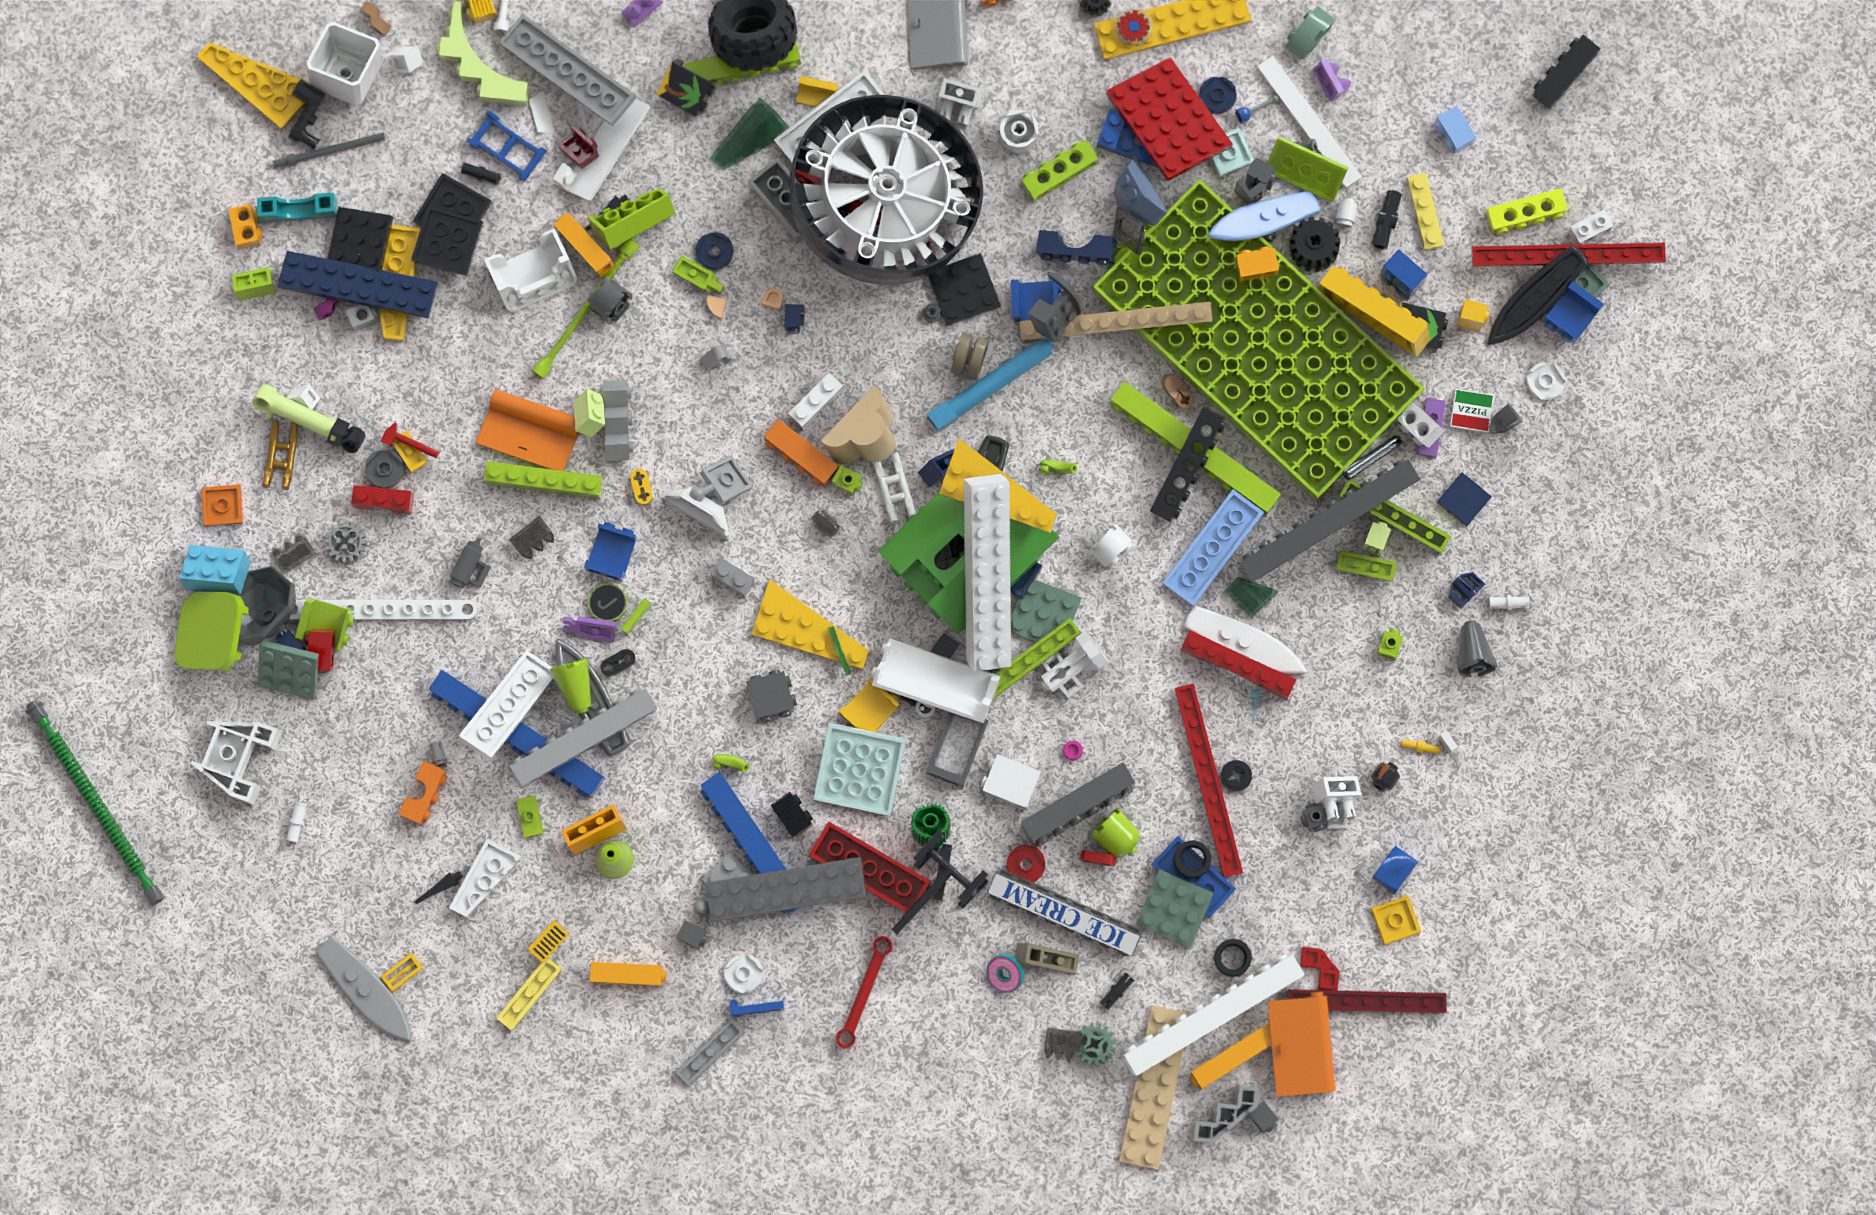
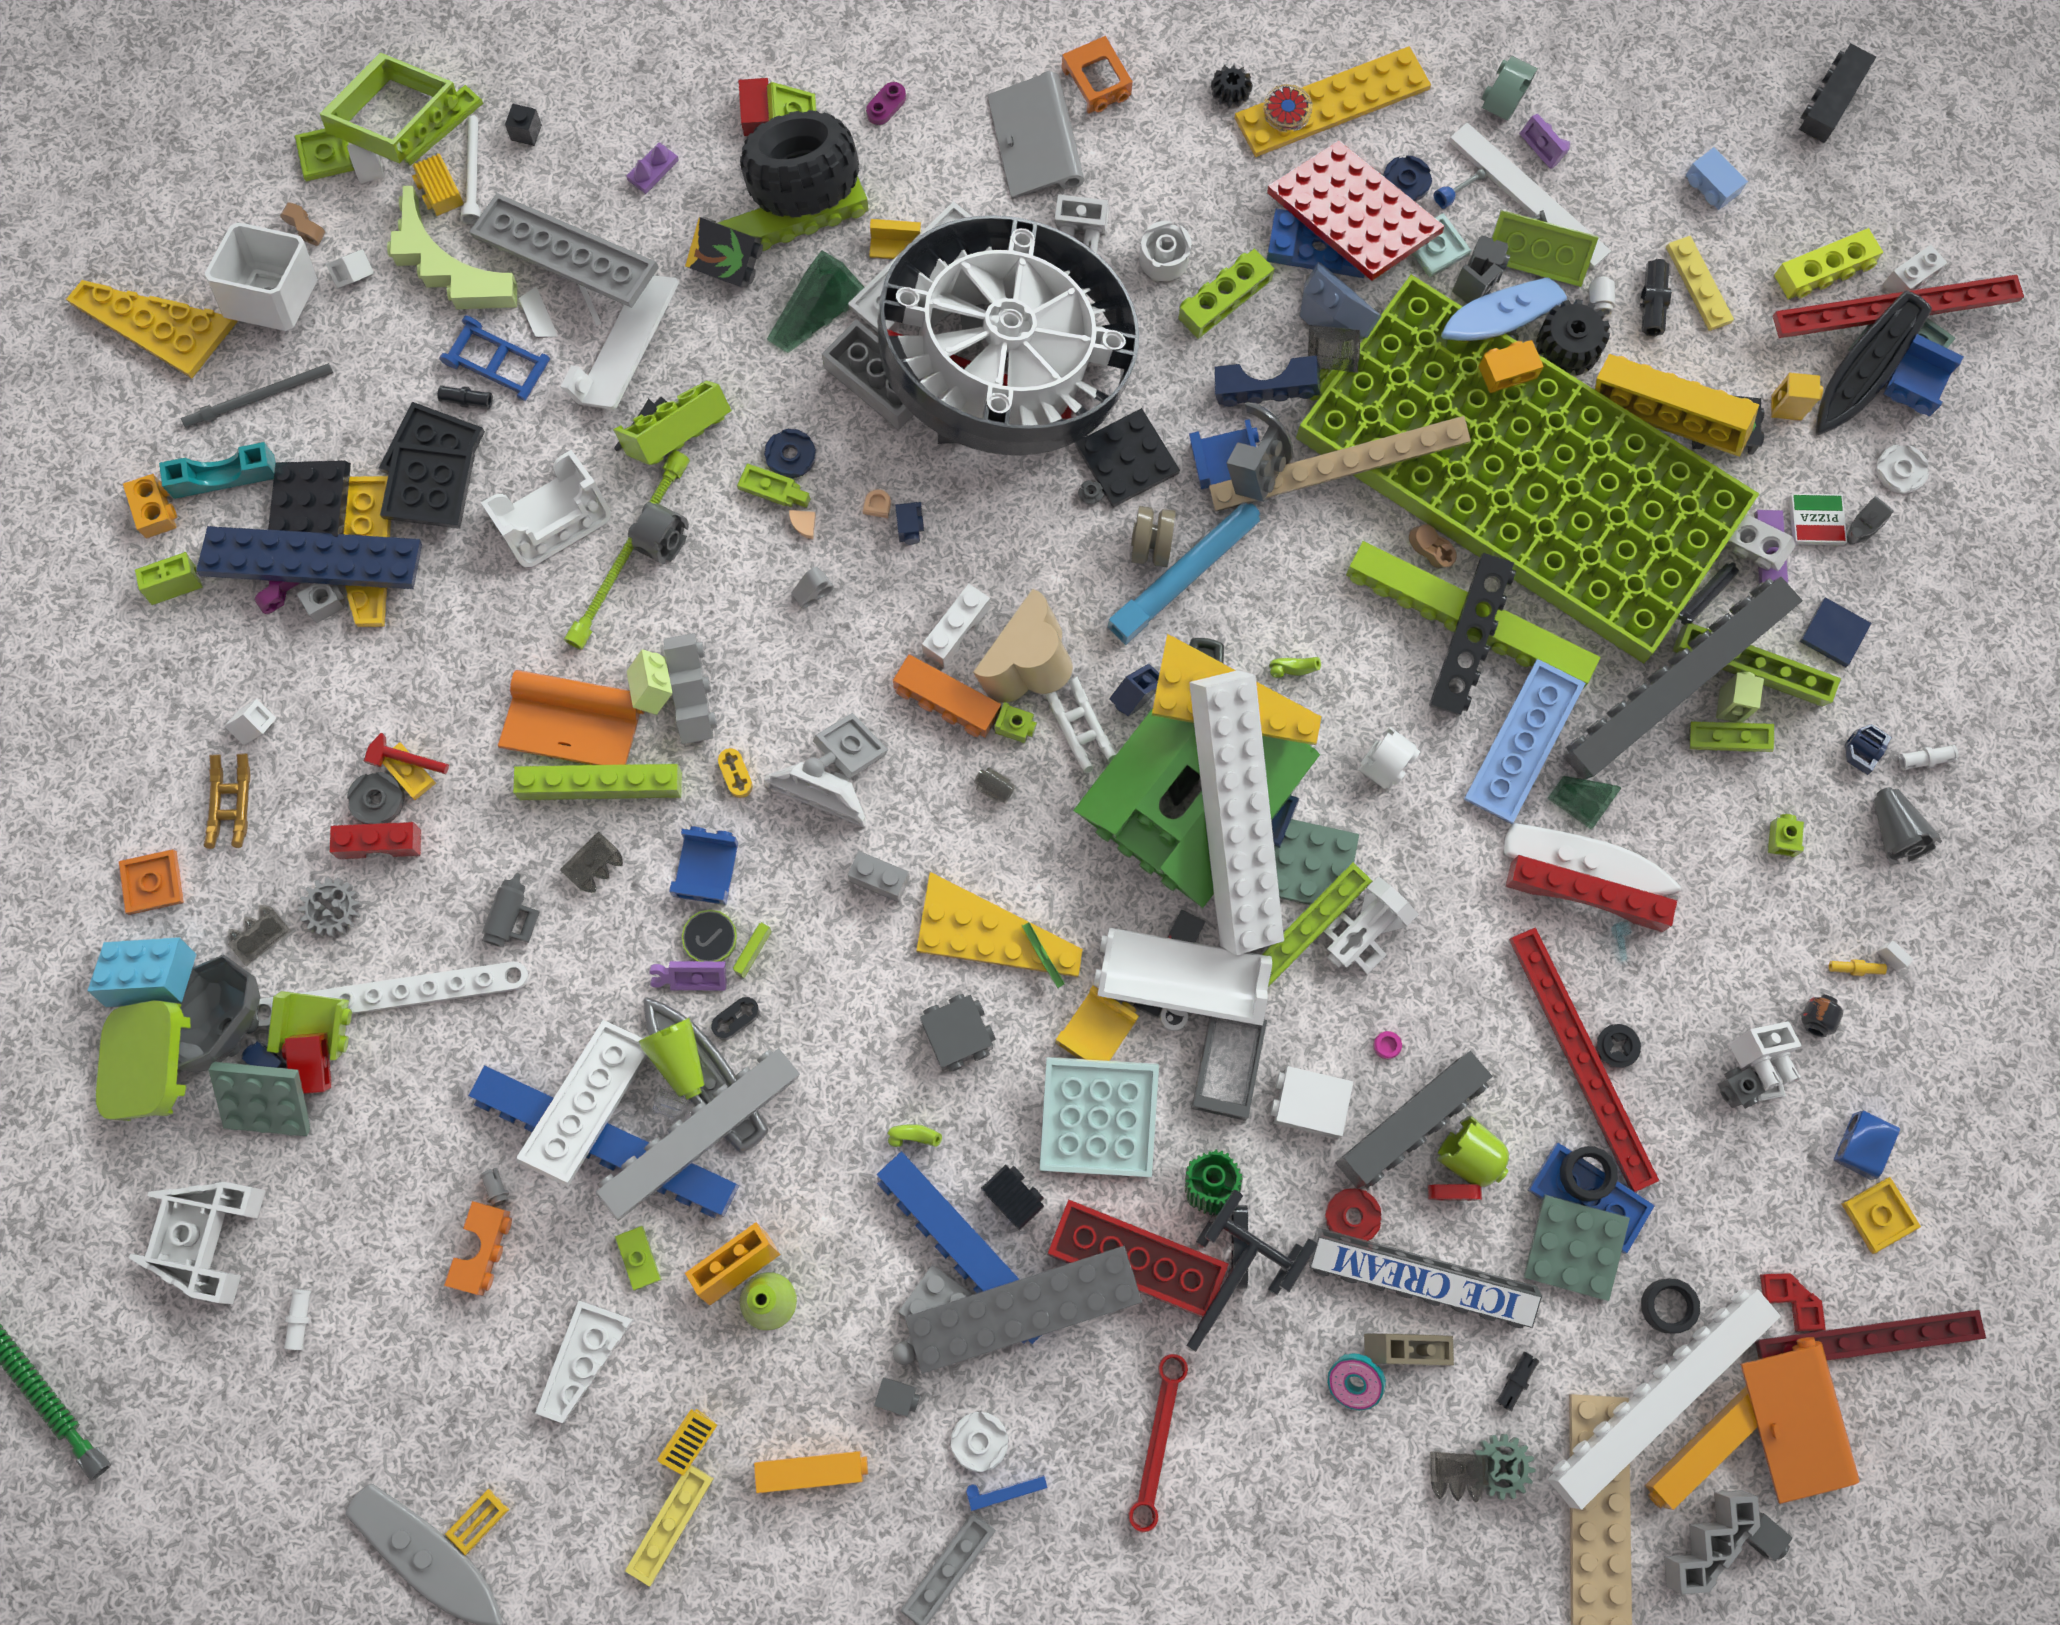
camera: 15 degrees left, 5 degrees down
(312, 98) = (226, 330): black piece -> none
(336, 431) = (299, 757): yellowish green piece -> none
(445, 883) = (529, 1373): black piece -> none
(579, 147) = (592, 345): dark red bracket -> none
(584, 244) = (614, 466): light orange brick -> none
(1403, 275) = (1696, 356): blue brick -> none

